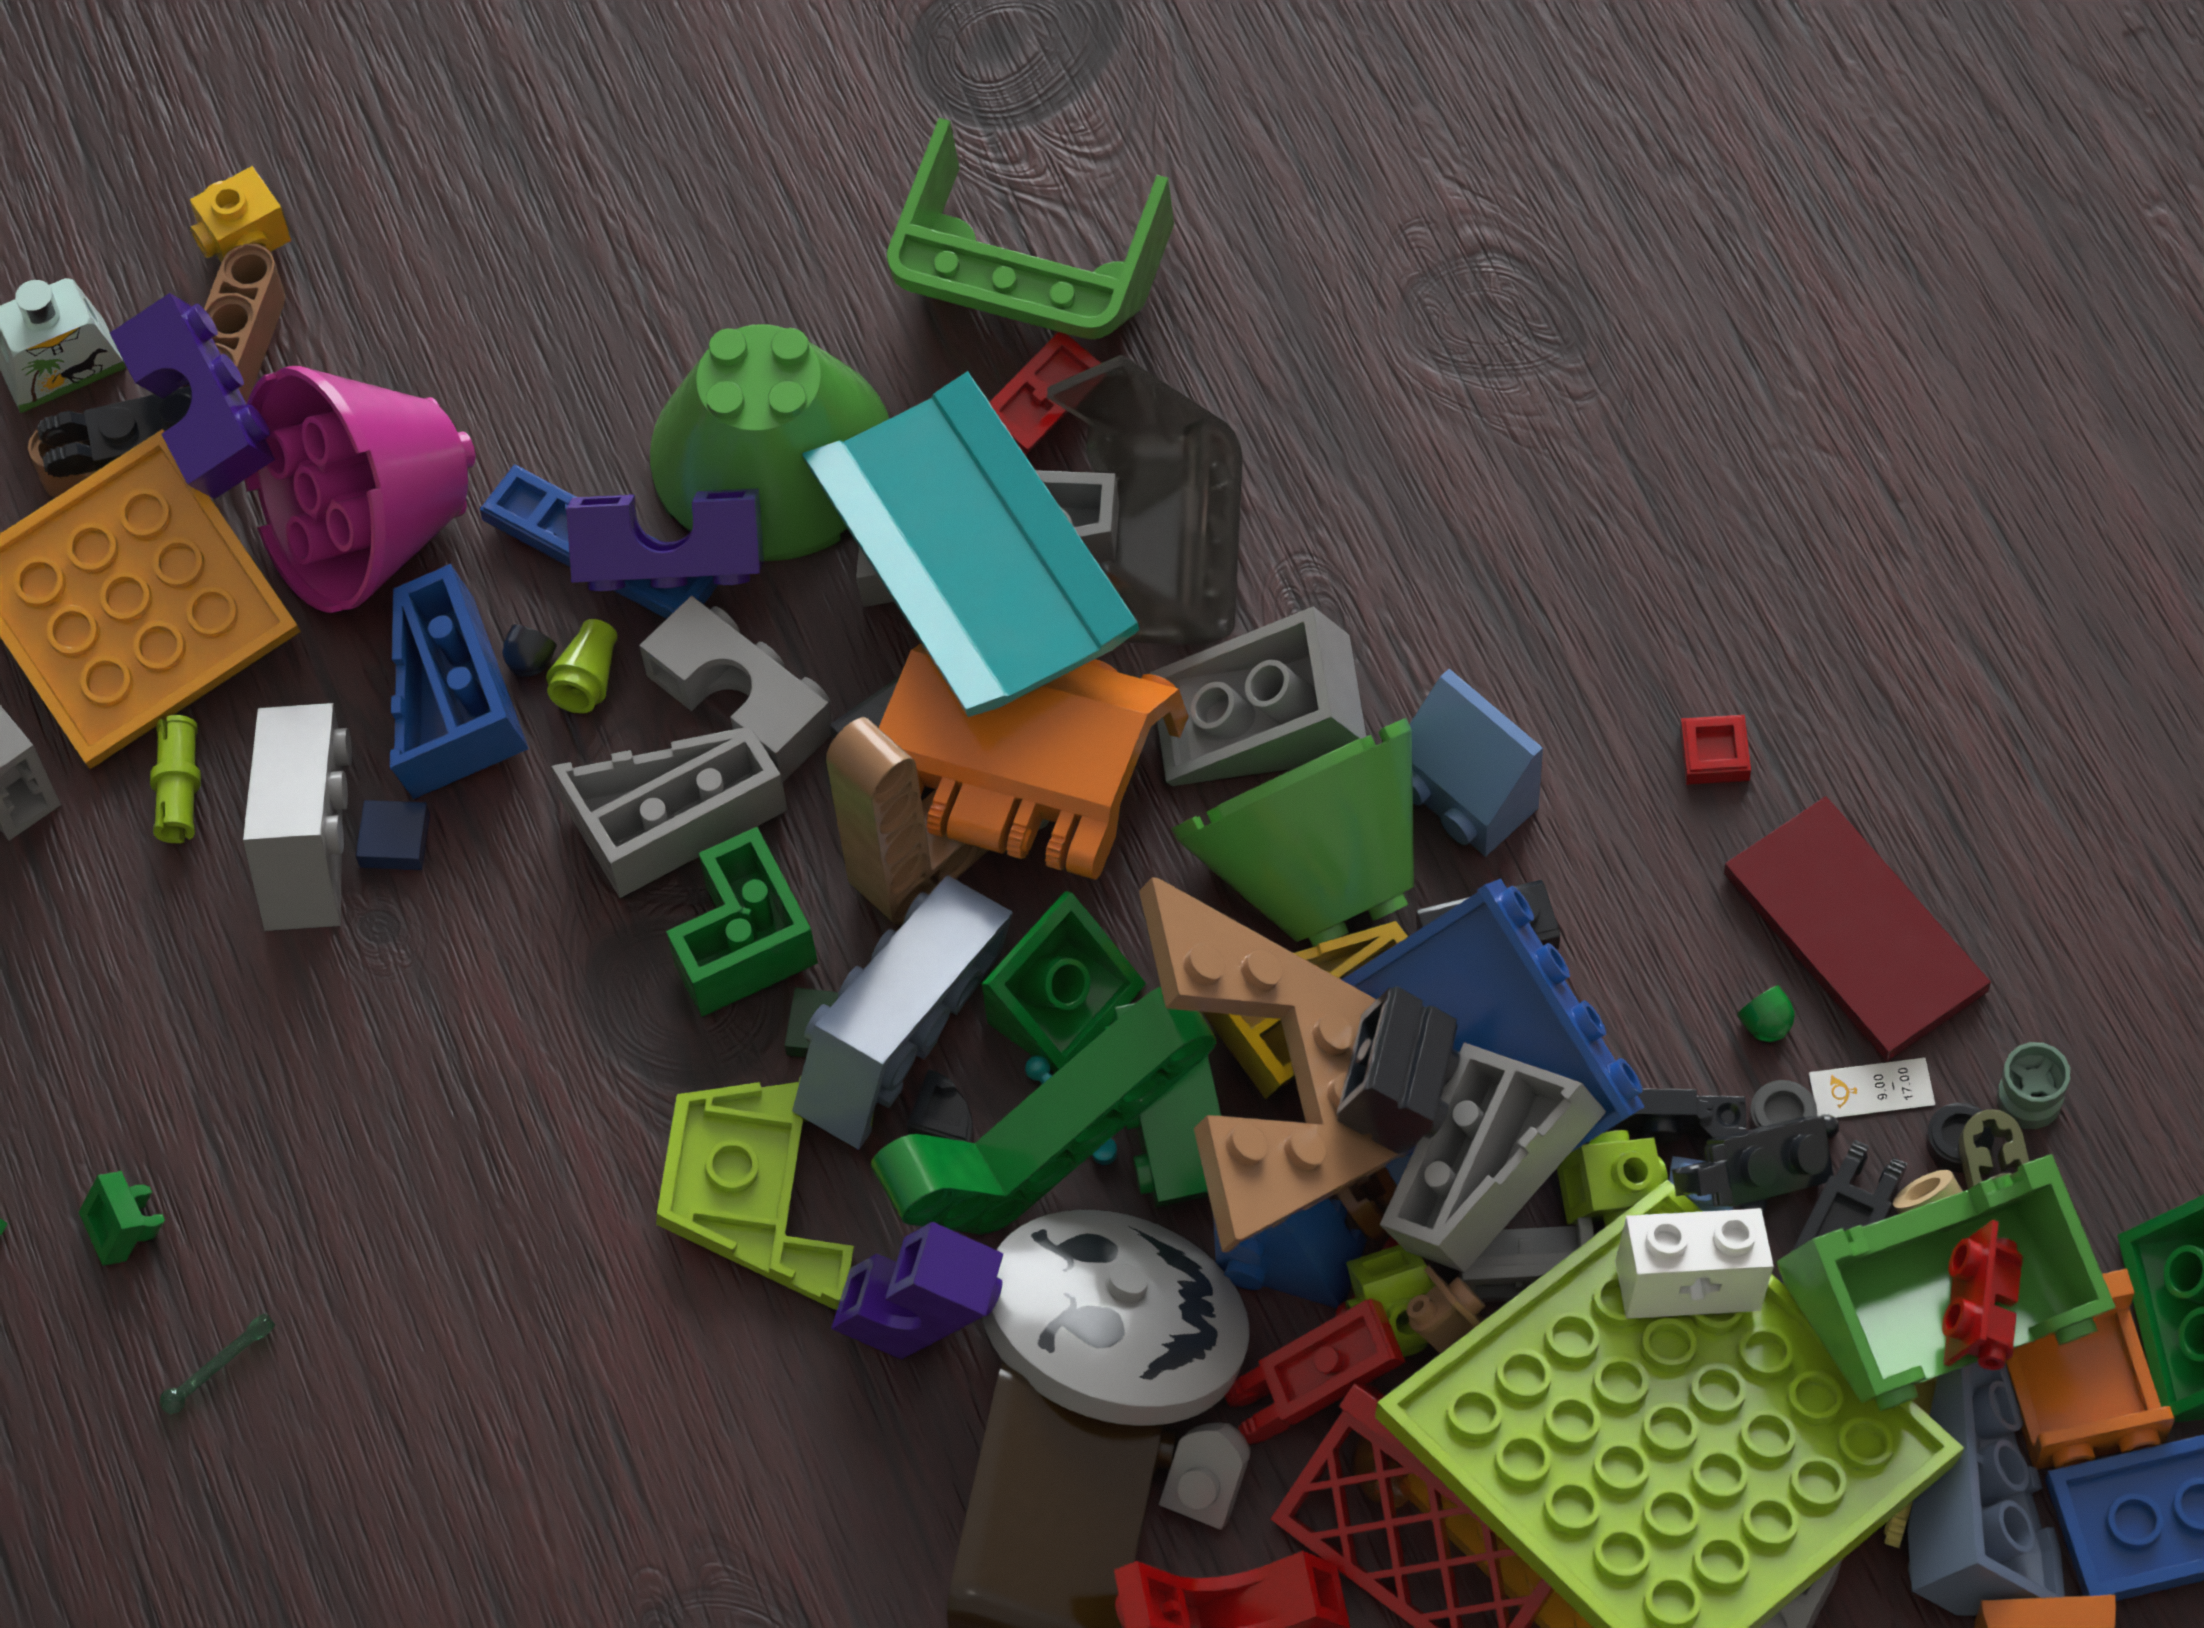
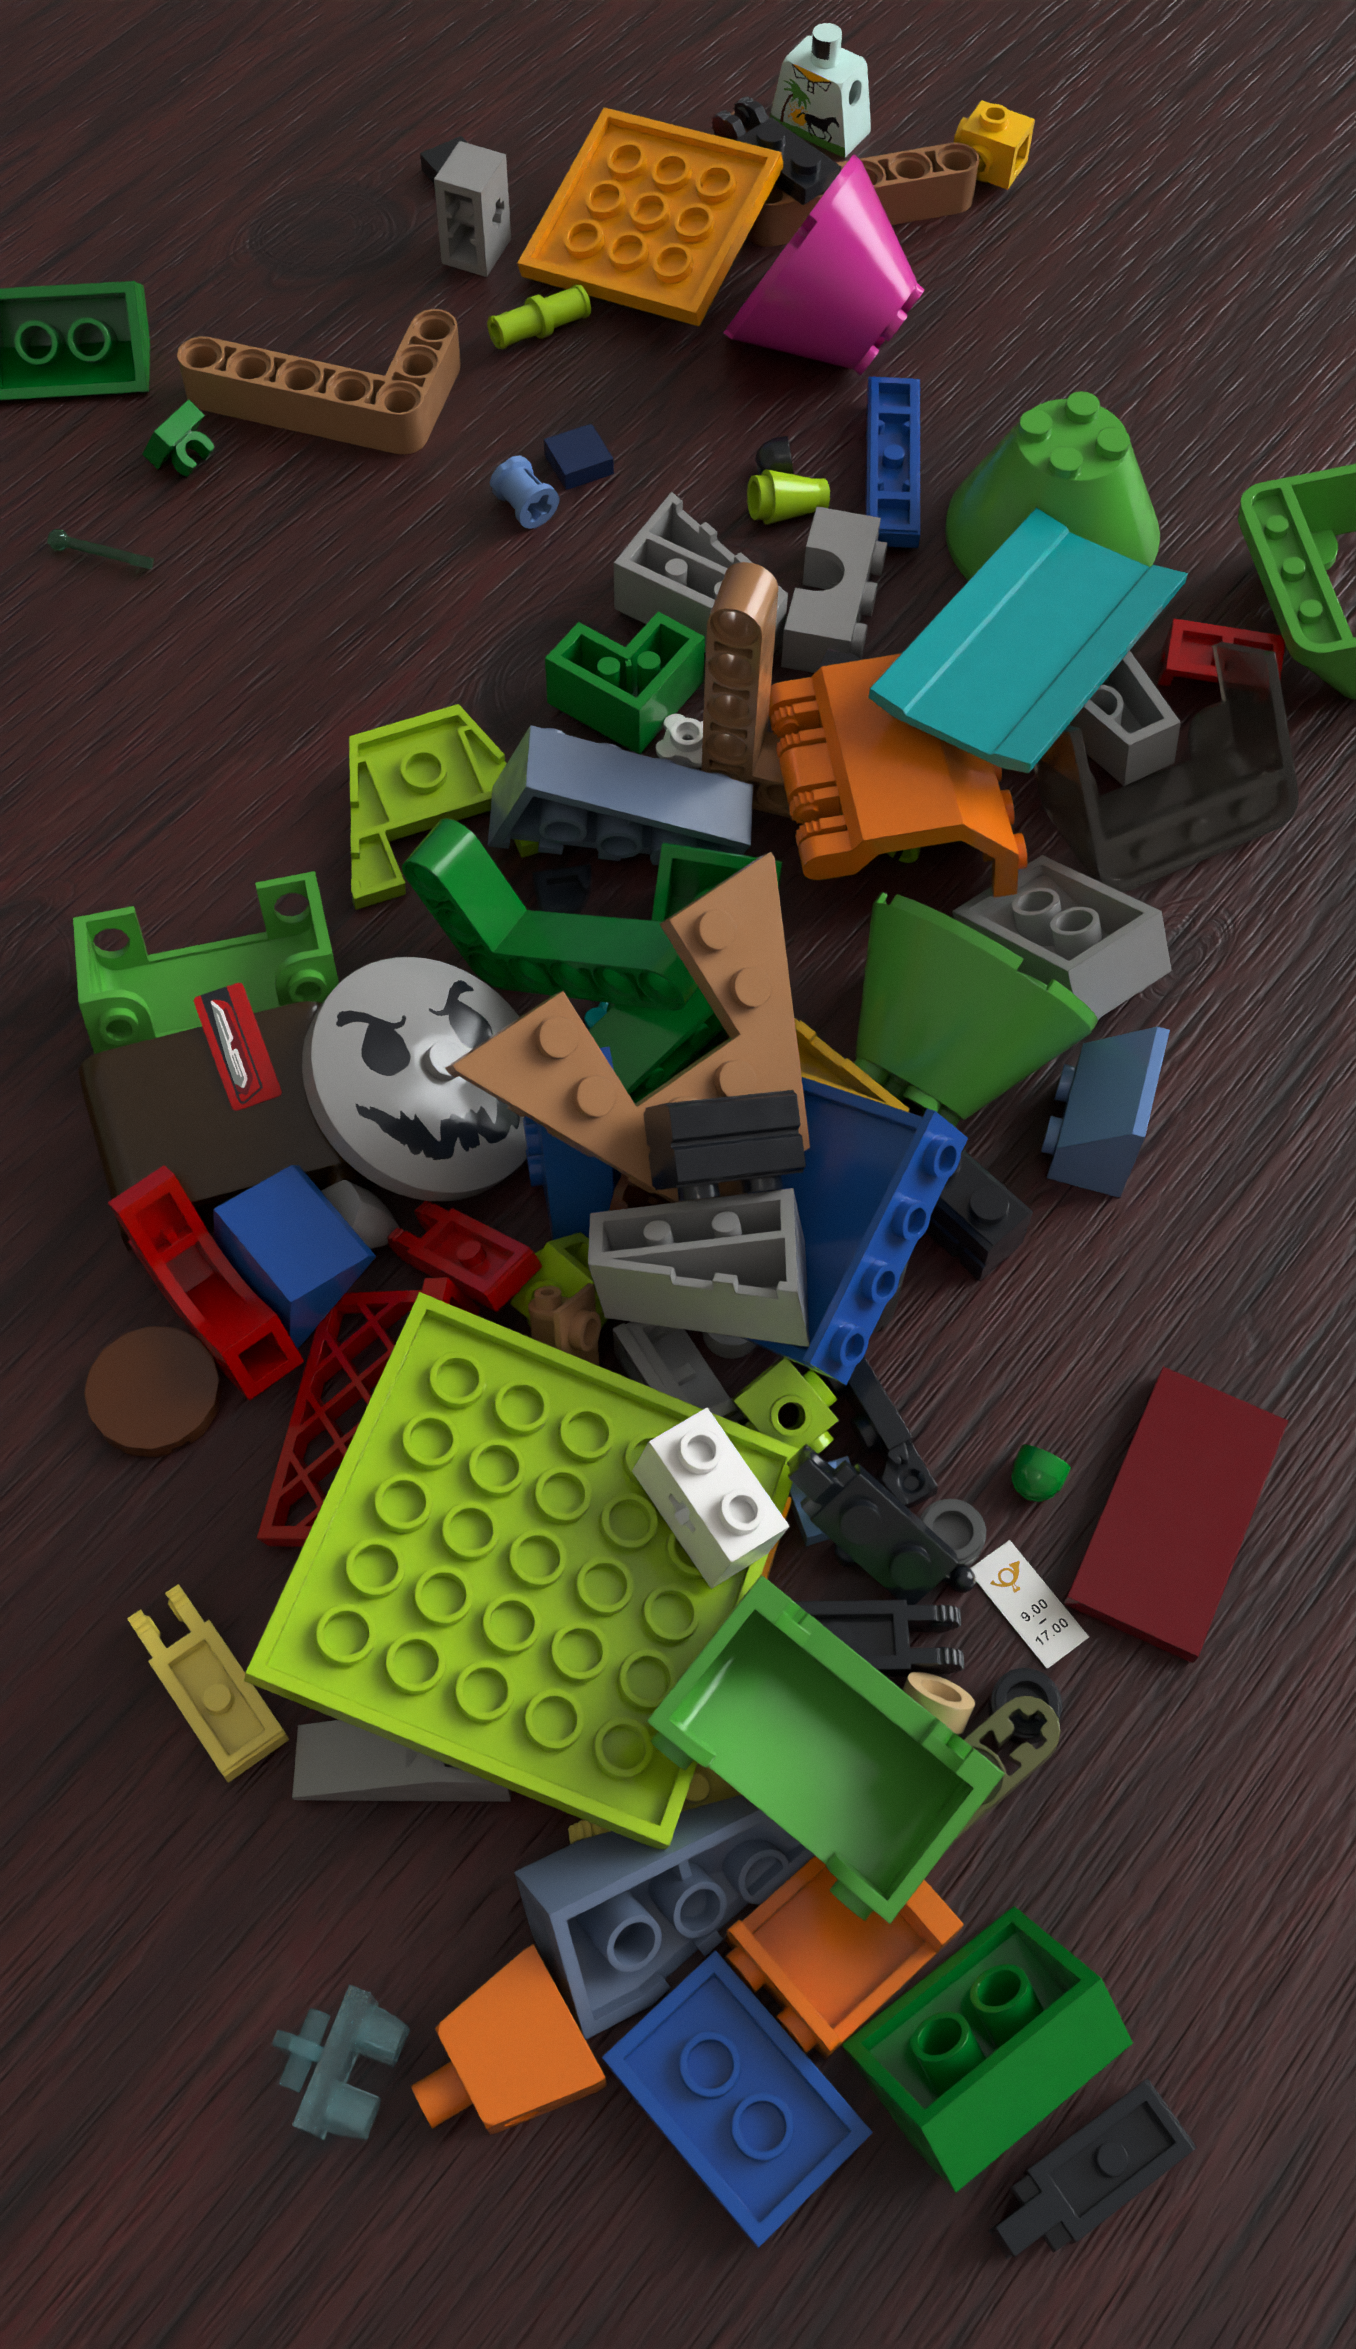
camera: 55 degrees right, 0 degrees up
(148, 1032) = (331, 400): none -> medium nougat beam
(220, 434) = (793, 173): dark purple arch -> none
(296, 815) = (547, 384): light grey wedge -> none
(419, 908) = (518, 486): none -> medium blue bush
(448, 687) = (711, 421): blue wedge -> none
(613, 548) = (939, 502): dark purple arch -> none
(840, 927) = (674, 744): none -> white plate
(883, 1469) = (146, 996): none -> bright green windscreen
(924, 1296) = (358, 917): dark purple arch -> none
(1012, 1453) = (237, 1046): none -> sticker
(1227, 1512) = (291, 1248): none -> blue slope
(1715, 749) = (1272, 1309): red tile -> none
(1982, 1272) = (801, 1789): red hinge -> none
(2035, 1070) = (1120, 1732): sand green wheel -> none

